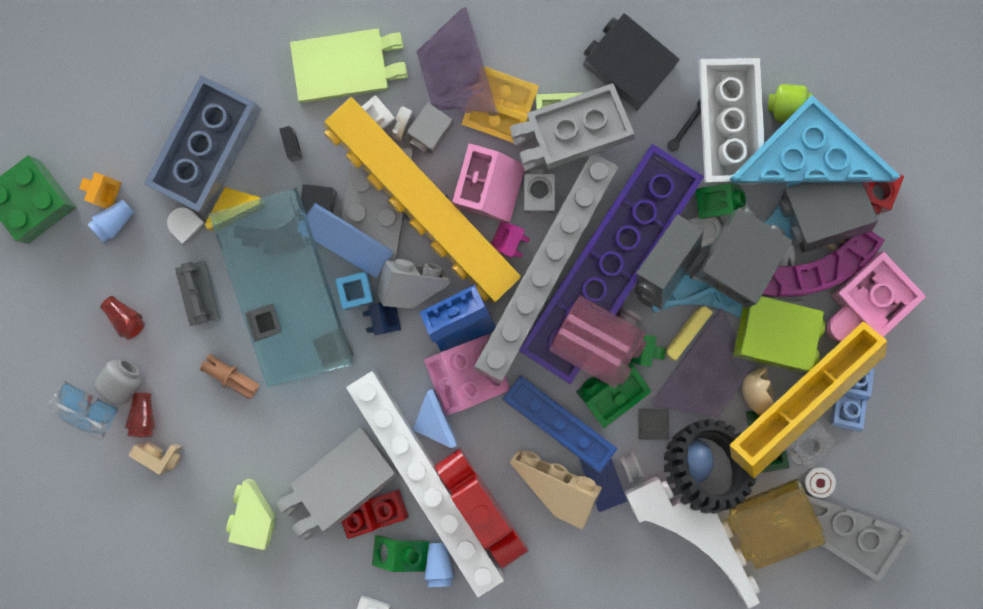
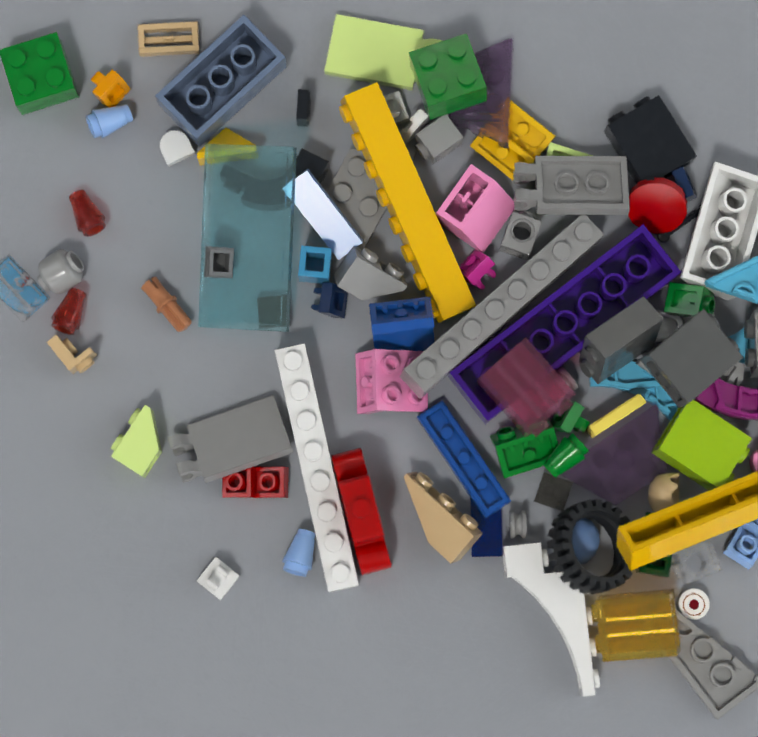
camera: 15 degrees right, 5 degrees down
(134, 111) = (168, 50): none -> tan tile
(197, 292) = (164, 215): dark grey hinge -> none
(402, 554) = (269, 529): green bracket -> none
(417, 66) = (448, 76): none -> green brick
(433, 422) = (343, 414): light blue slope -> none
(654, 389) = (566, 455): none -> green cone
(658, 119) = (657, 205): none -> red tile
(674, 91) = (683, 180): none -> dark blue tile

